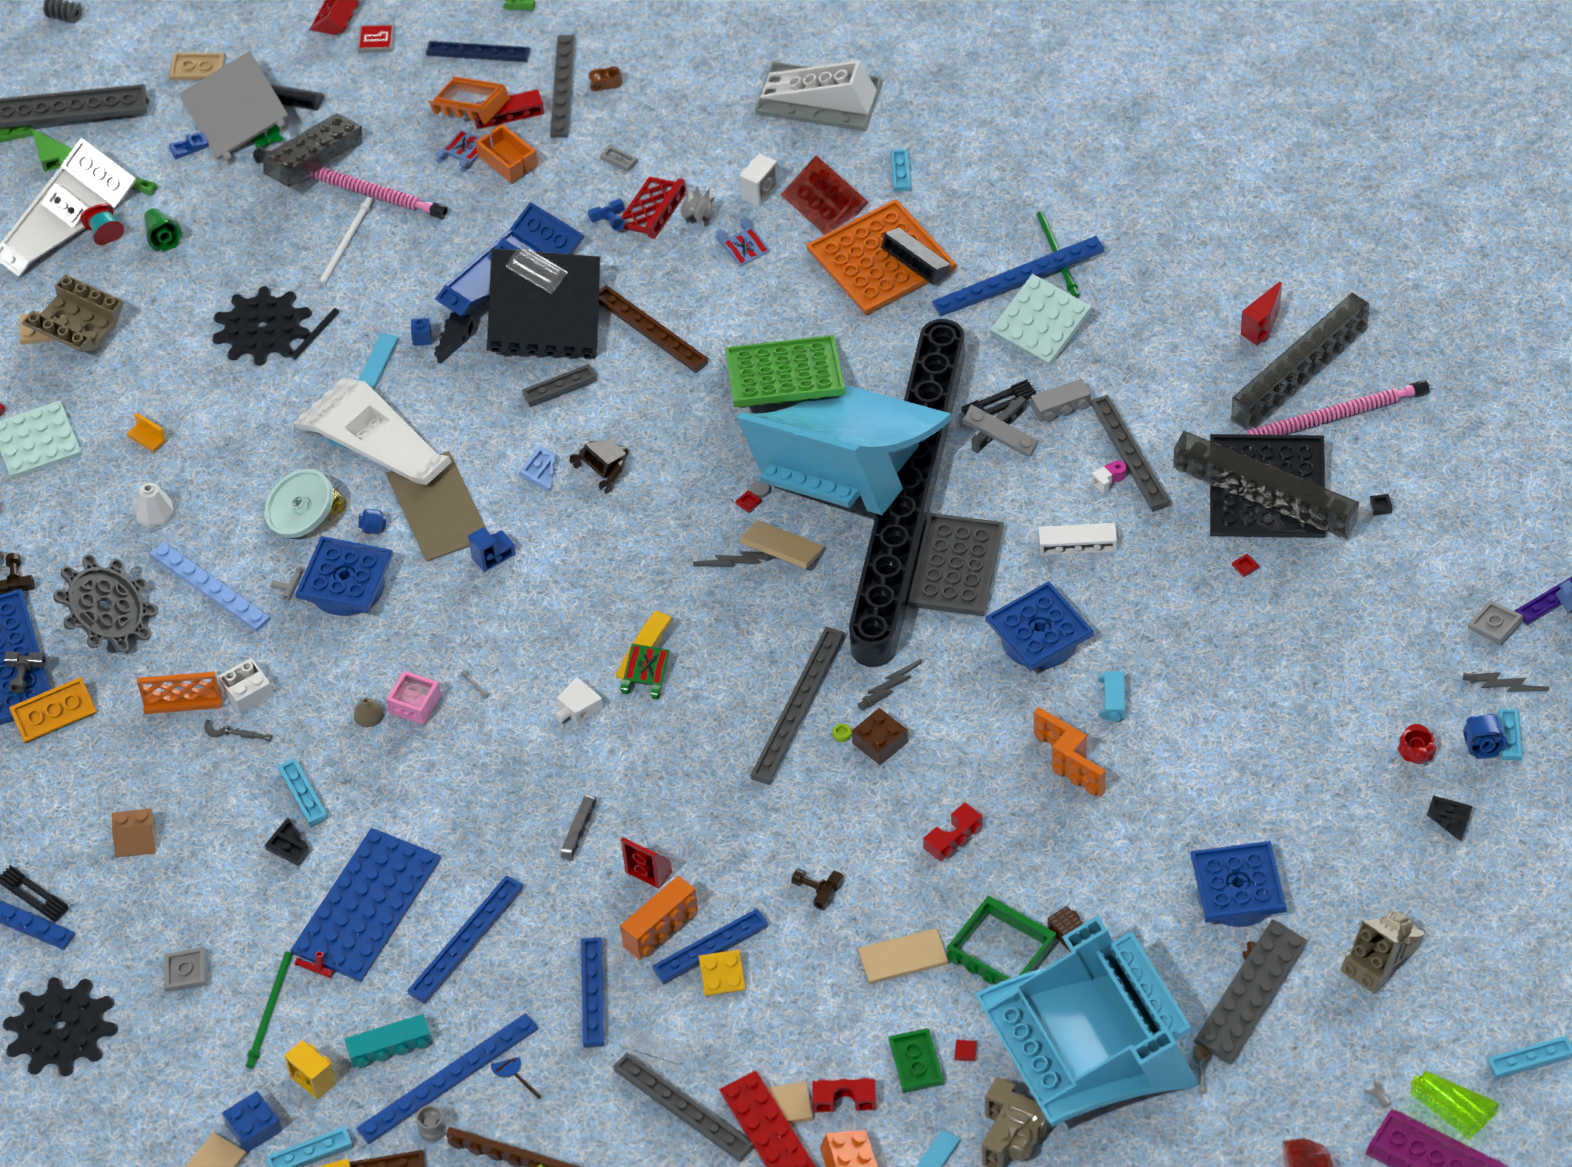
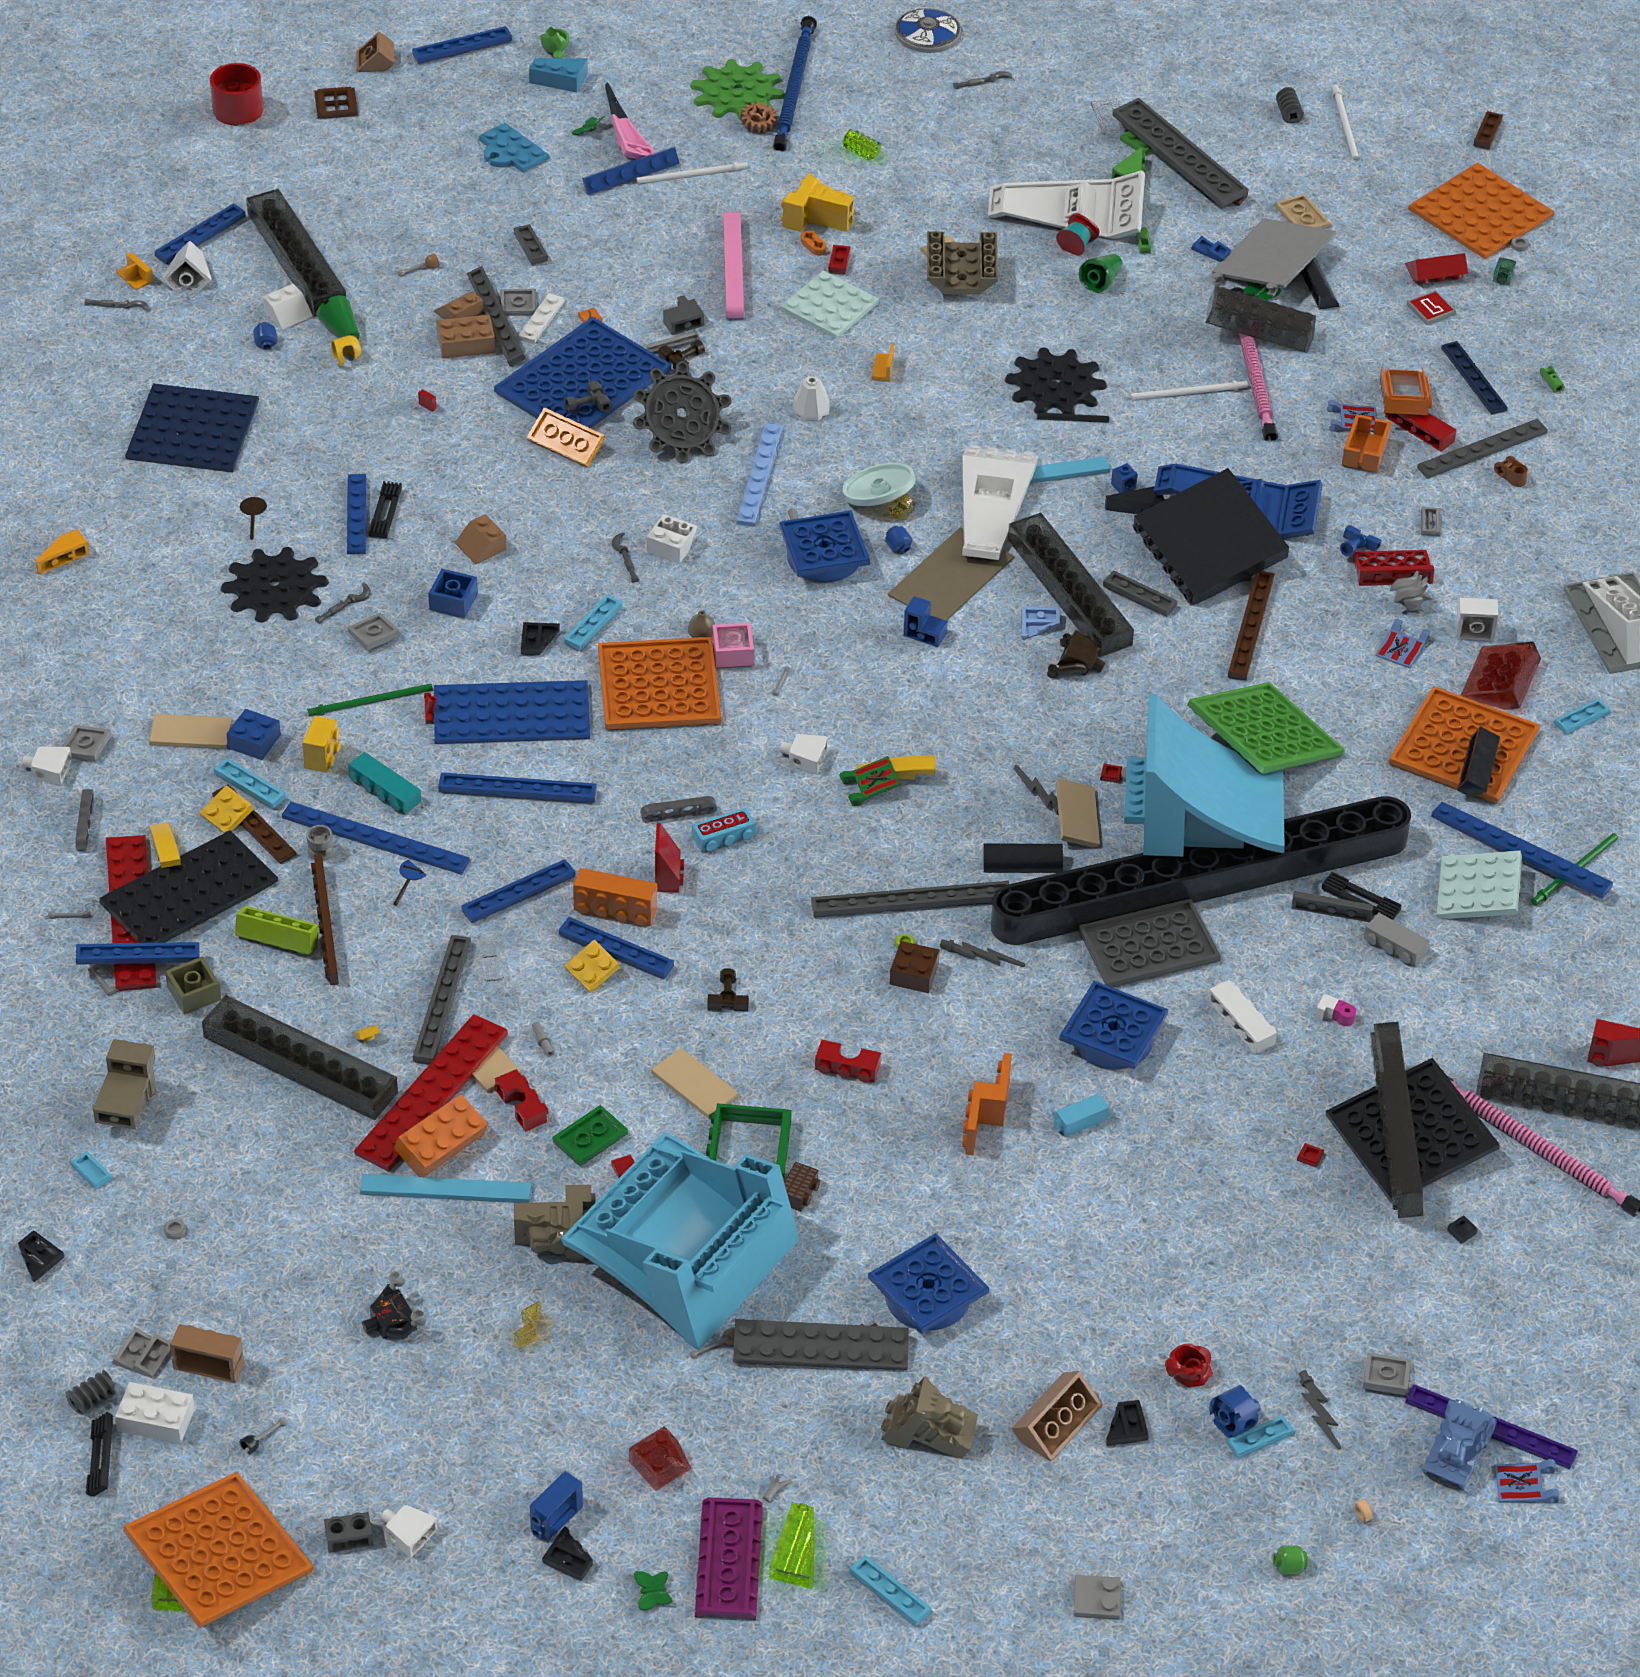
camera: 55 degrees right, 5 degrees down
(127, 969) = (350, 598): none -> dark grey piece
(175, 700) = (631, 500): orange fence -> none
(189, 883) = (453, 593): none -> blue brick
(414, 775) = (659, 683): none -> orange plate
(516, 425) = (1070, 584): none -> clear smoke brick
(536, 269) = (1234, 508): clear piece -> none
(628, 804) = (723, 830): none -> medium azure brick
(779, 1049) = (542, 1039): none -> light grey bar
(806, 605) = (1022, 858): none -> black brick
(999, 430) = (1319, 906): light grey plate -> none
(1130, 453) = (1378, 1012): dark grey plate -> none
(1416, 858) = (1057, 1415): none -> medium nougat slope

